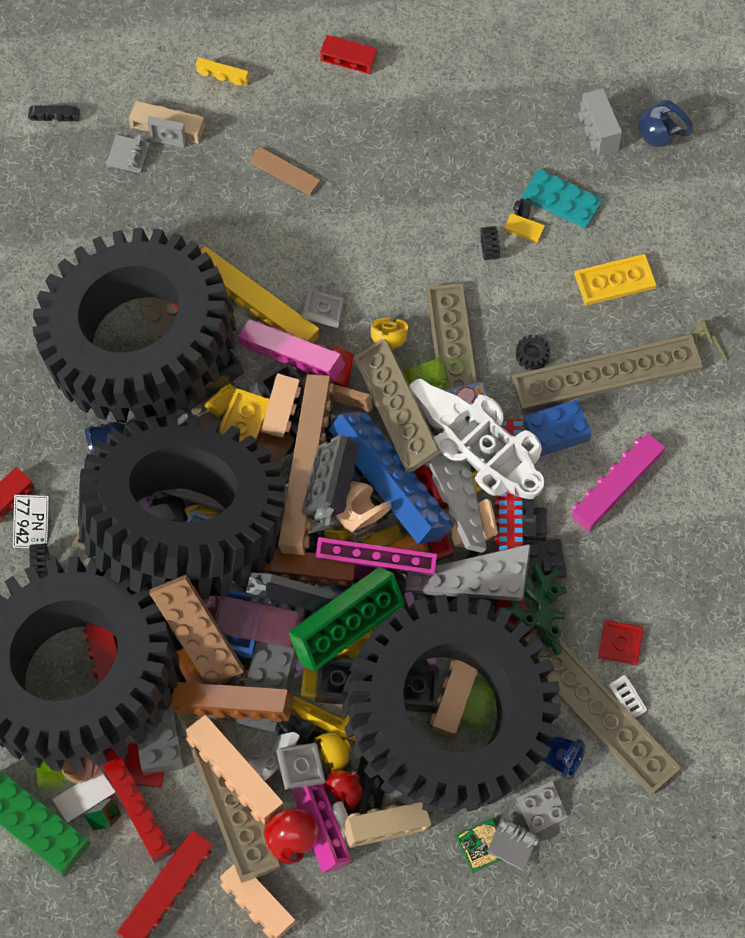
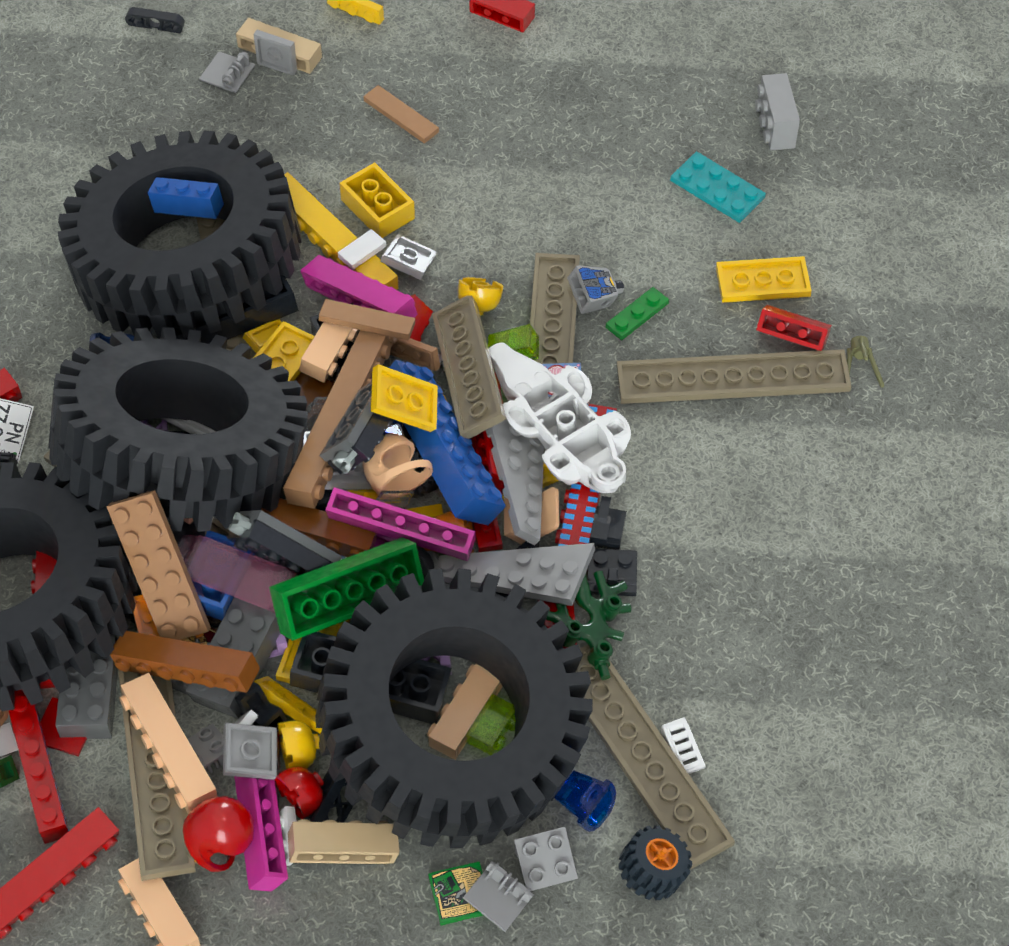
camera: 10 degrees right, 10 degrees down
(133, 293) = (185, 198): none -> blue brick
(284, 309) = (362, 249): none -> white tile
(285, 260) = (377, 200): none -> yellow brick
(308, 380) = (367, 319): none -> medium nougat tile
(360, 453) = (404, 398): none -> yellow plate
(480, 312) = (594, 288): none -> torso
(490, 243) = (621, 217): black tyre -> none
(519, 327) = (637, 313): none -> green plate
(522, 208) = (668, 189): black plate -> none
(524, 228) = (666, 210): yellow tile -> none
(536, 343) = (651, 331): black tyre -> none
(558, 427) = (660, 426): blue brick -> none
(617, 482) = (721, 497): dark pink brick -> none
(620, 642) = (688, 682): red tile -> none
(626, 797) = (655, 862): none -> black wheel
(648, 321) = (793, 327): none -> red brick
(657, 126) = (844, 125): dark blue piece -> none

